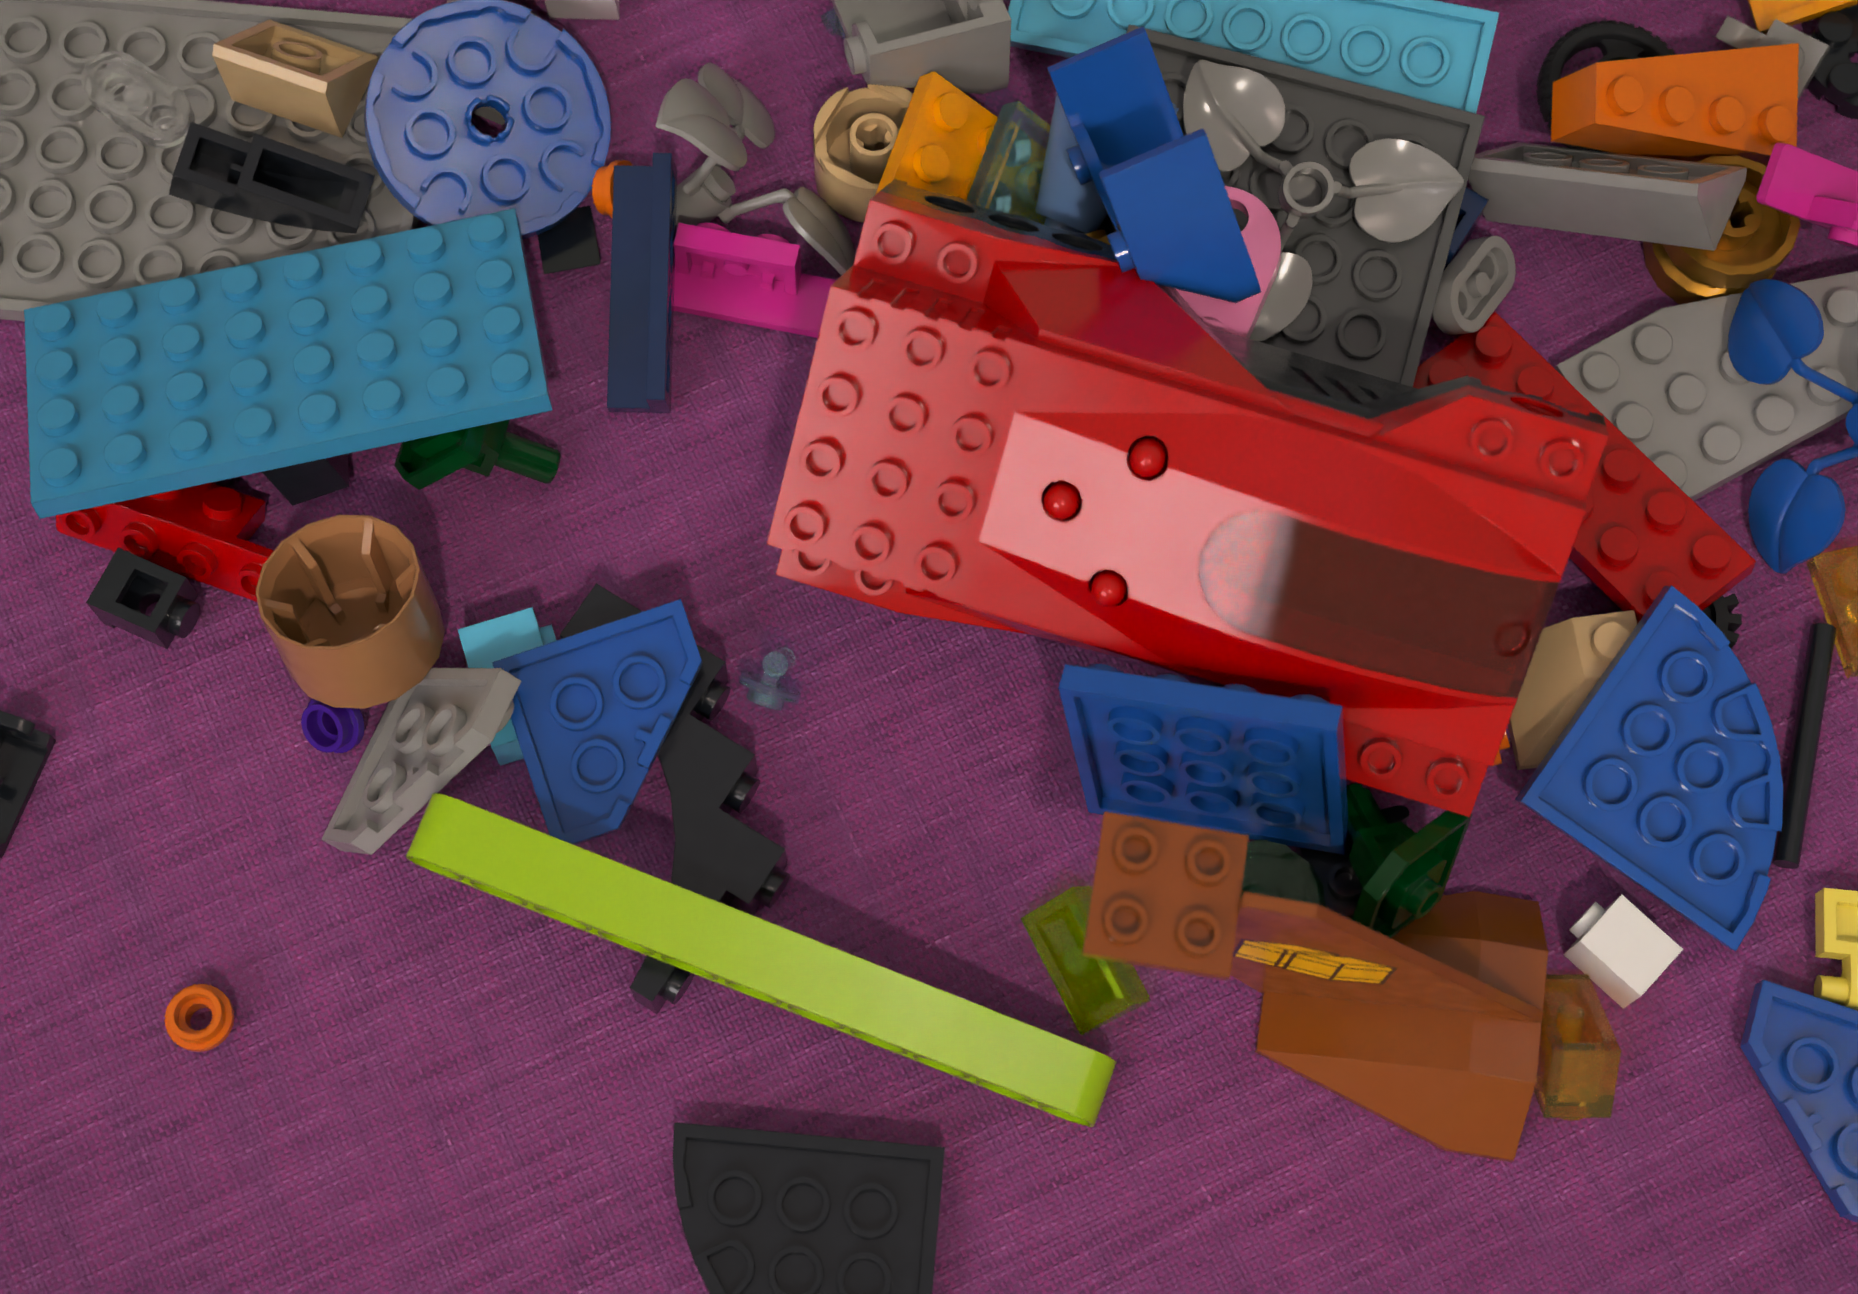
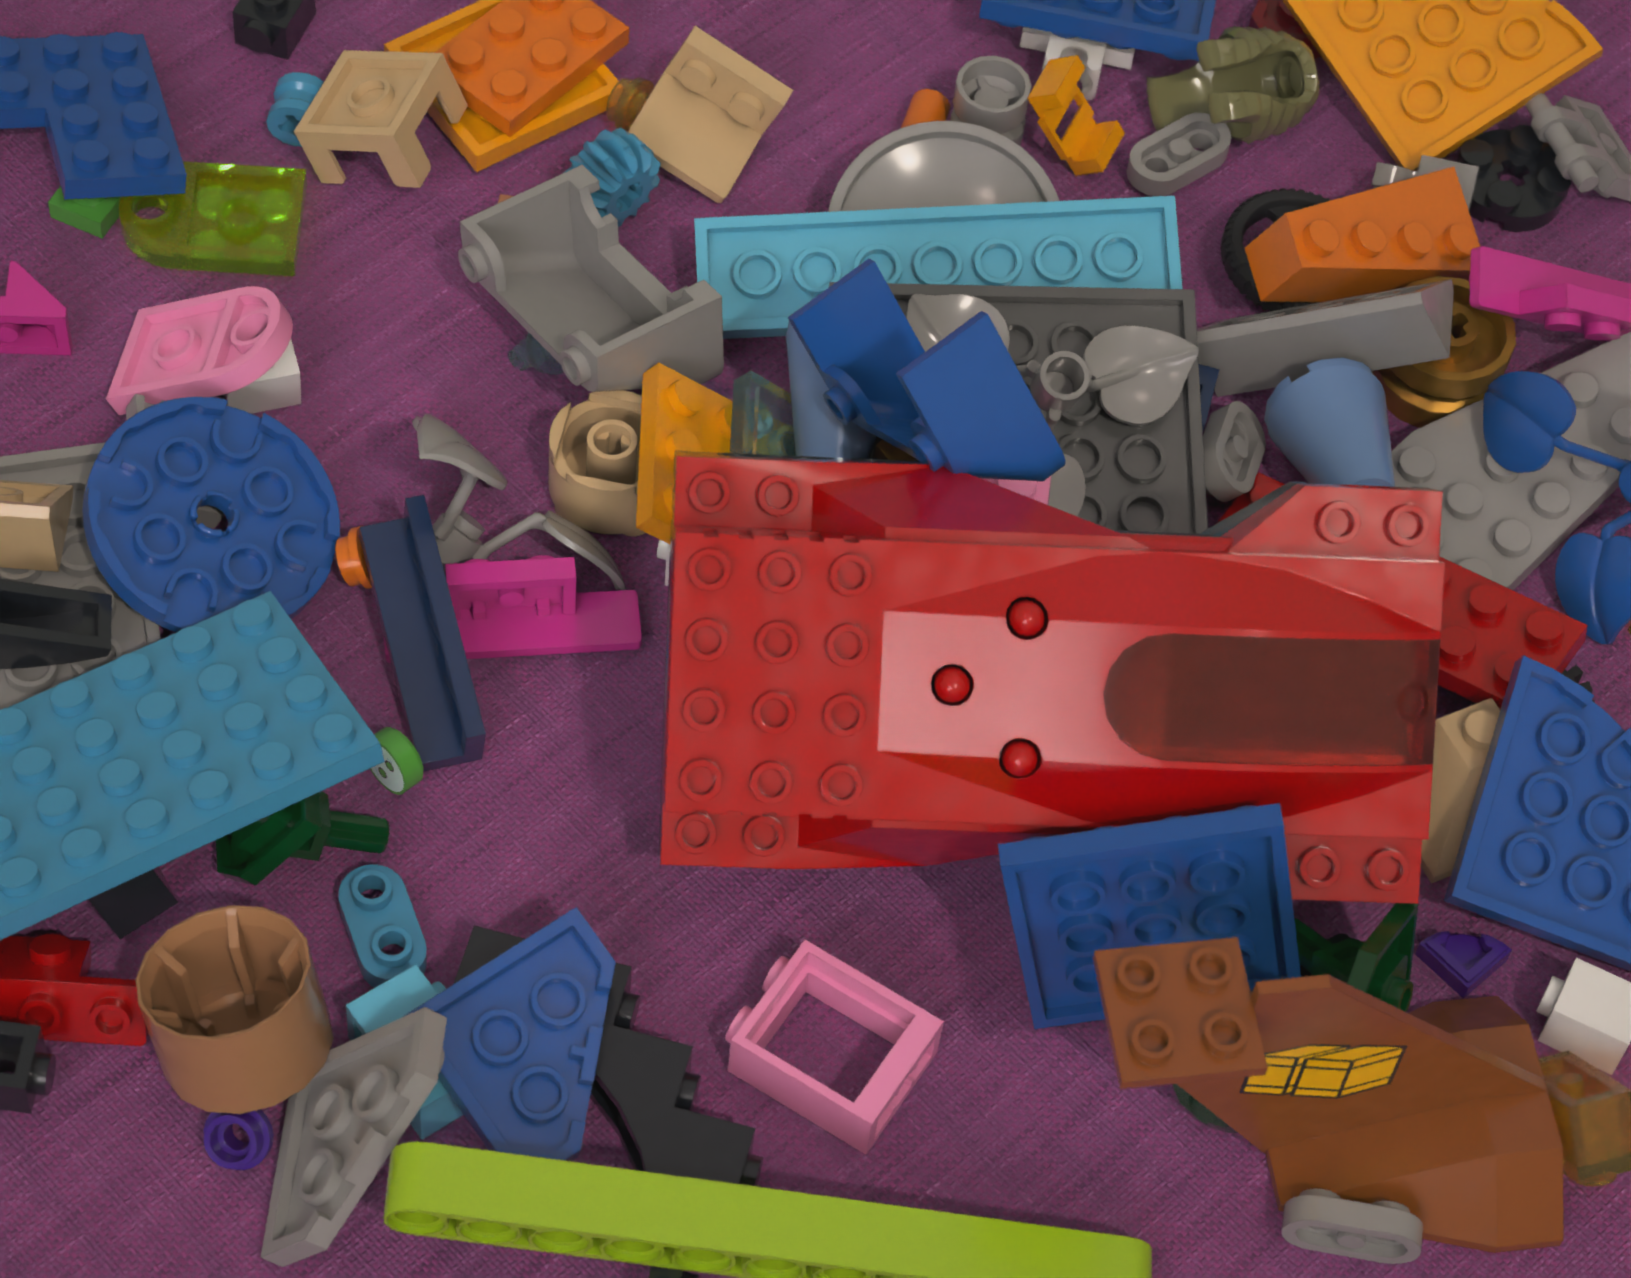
camera: 20 degrees left, 15 degrees down
(526, 552) = (380, 922): none -> dark azure plate
(570, 243) = (327, 620): black piece -> none
(584, 397) = (402, 762): none -> bright green tile
(769, 689) = (678, 989): clear light blue plate -> none
(934, 831) = (858, 997): none -> bright pink window
(1090, 987) = (1081, 1165): clear neon green slope -> none
(1336, 1105) = (1352, 1229): none -> light grey plate
(1519, 855) = (1462, 959): none -> dark purple tile
(1579, 302) = (1333, 424): none -> medium blue cone

